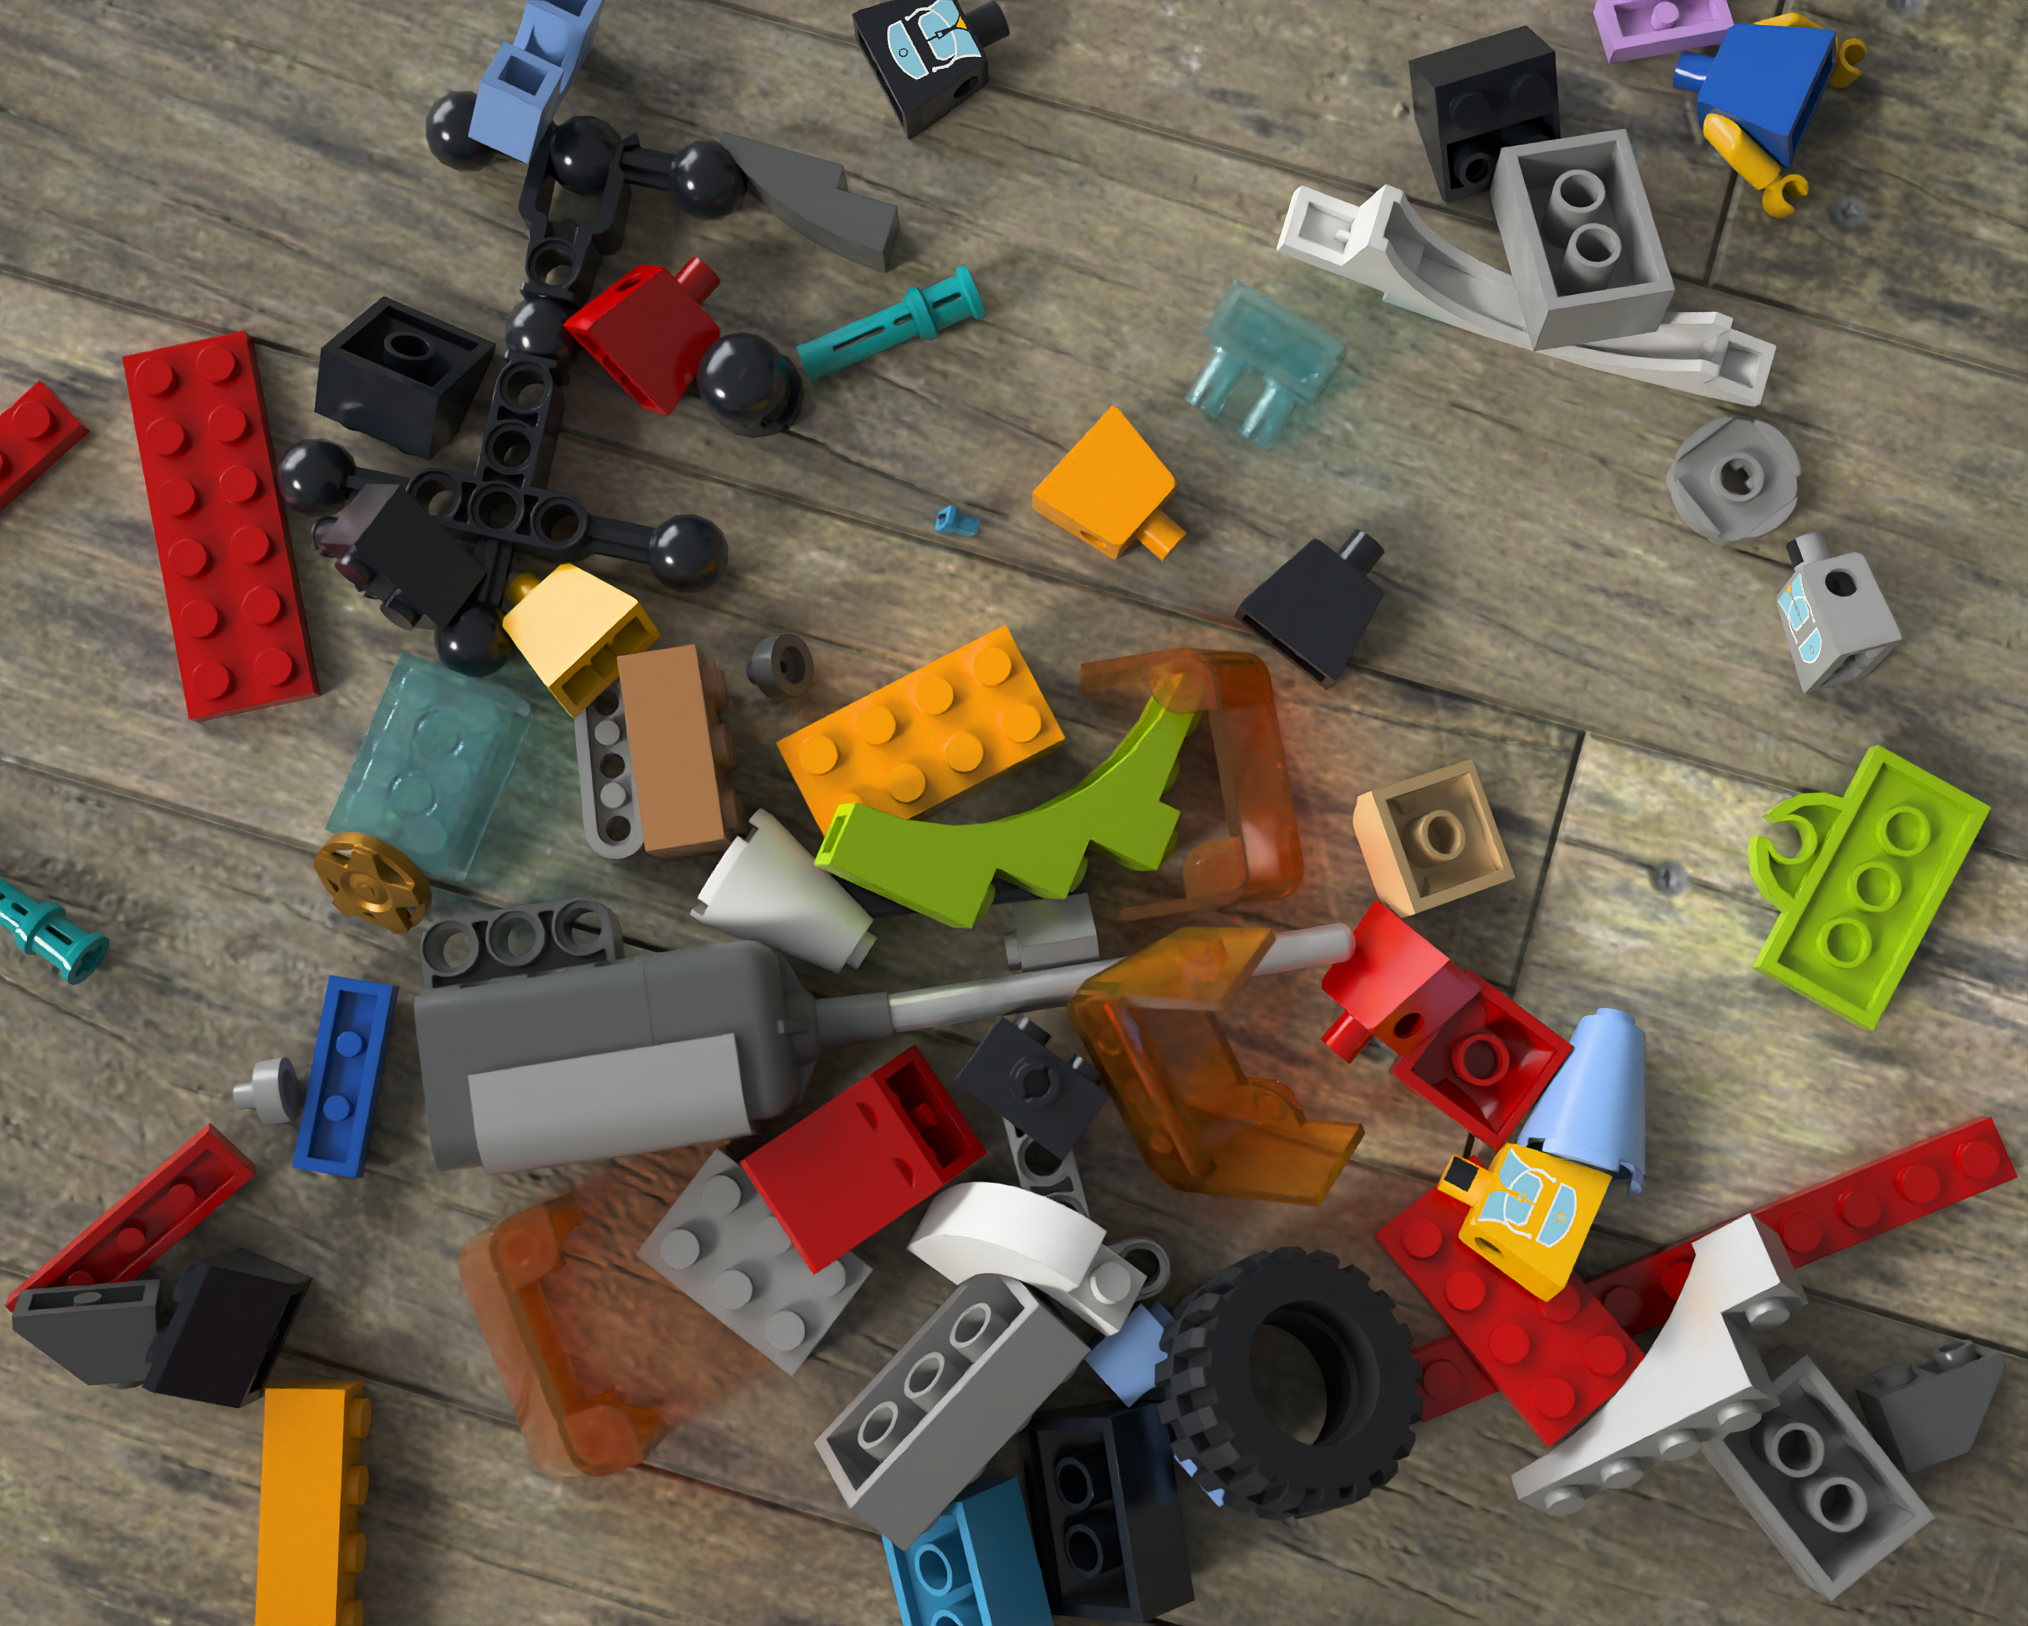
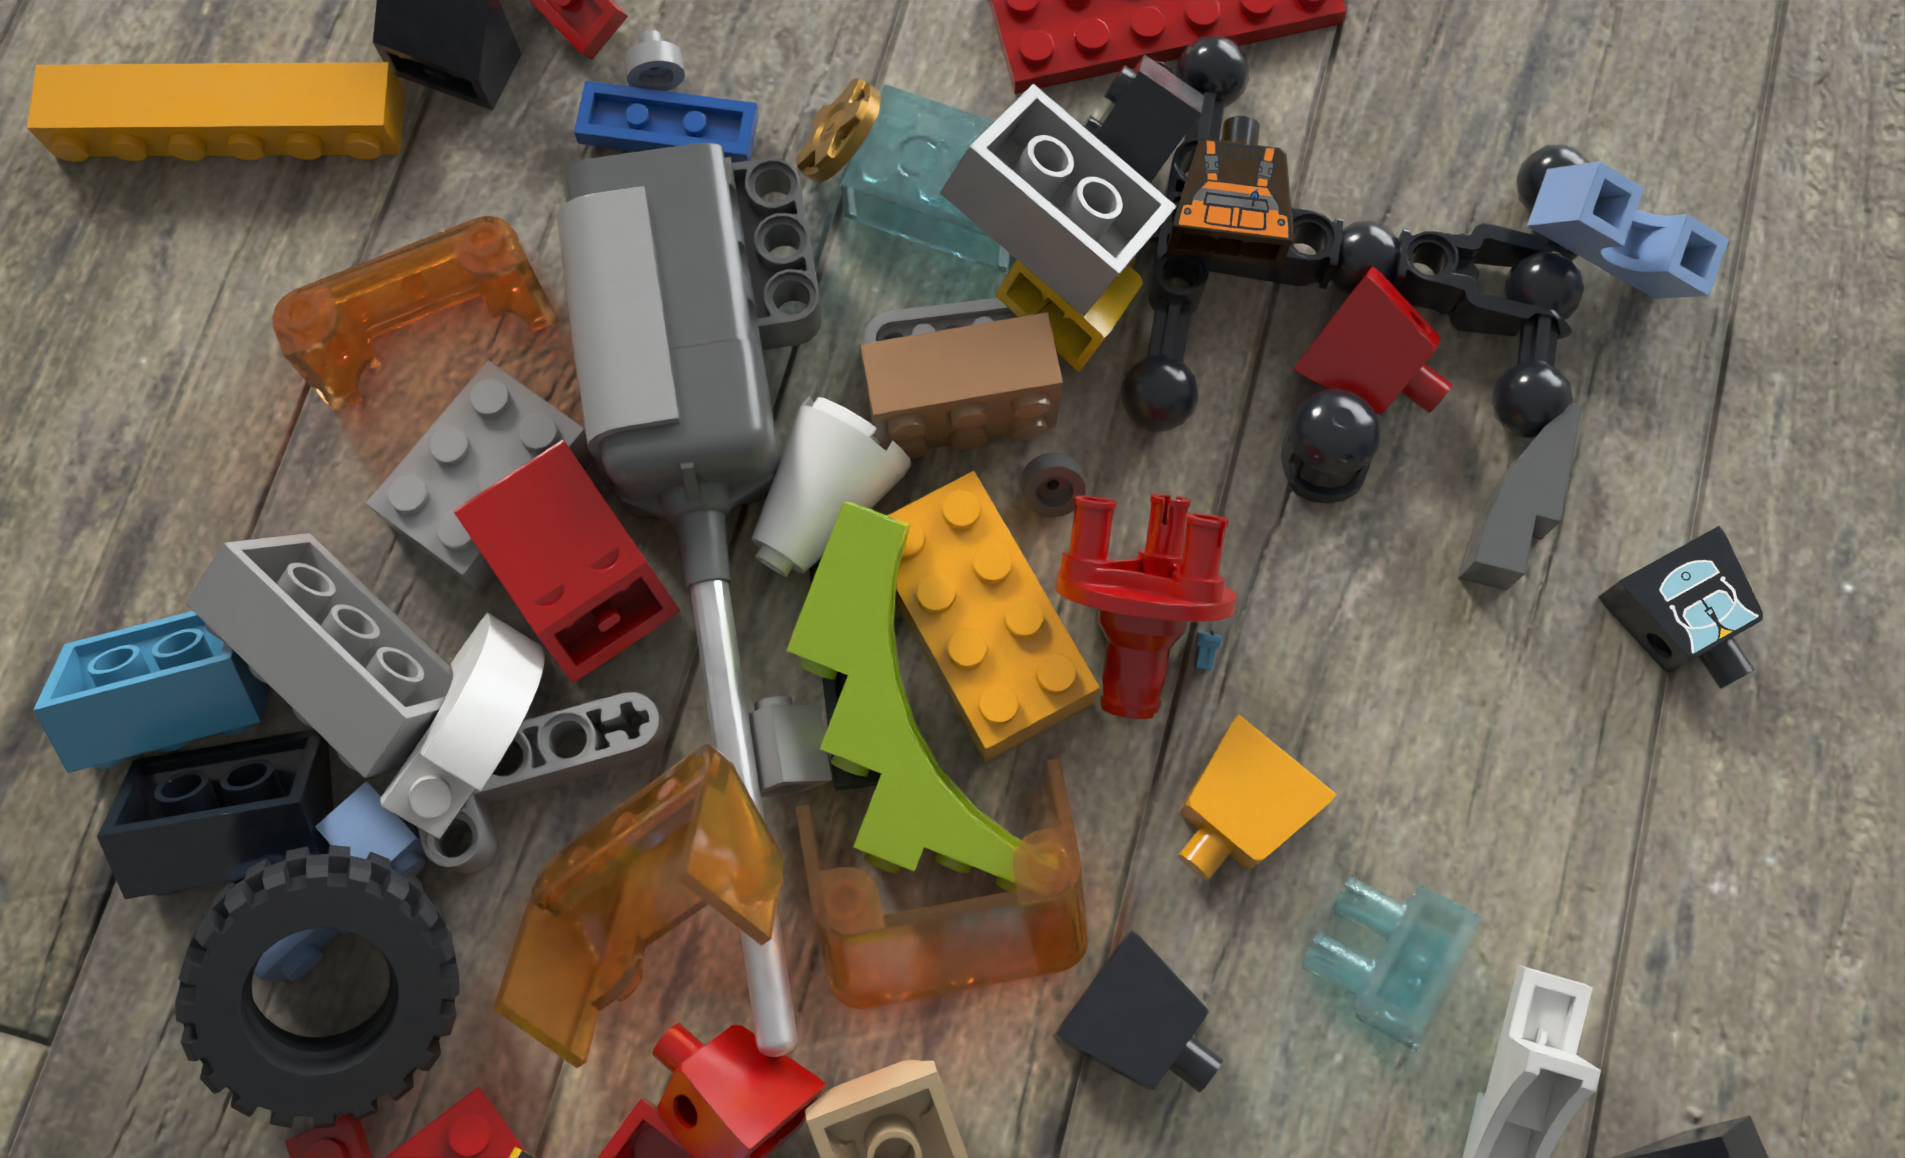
camera: 90 degrees right, 10 degrees down
(401, 377) = (1326, 132): black slope -> none
(487, 458) = (1235, 200): none -> torso
(493, 639) = (1056, 198): none -> light grey brick
(820, 355) = (1415, 613): teal pin -> none
(910, 574) = (1147, 597): none -> red piece
(1033, 1086) = (632, 719): black brick -> none

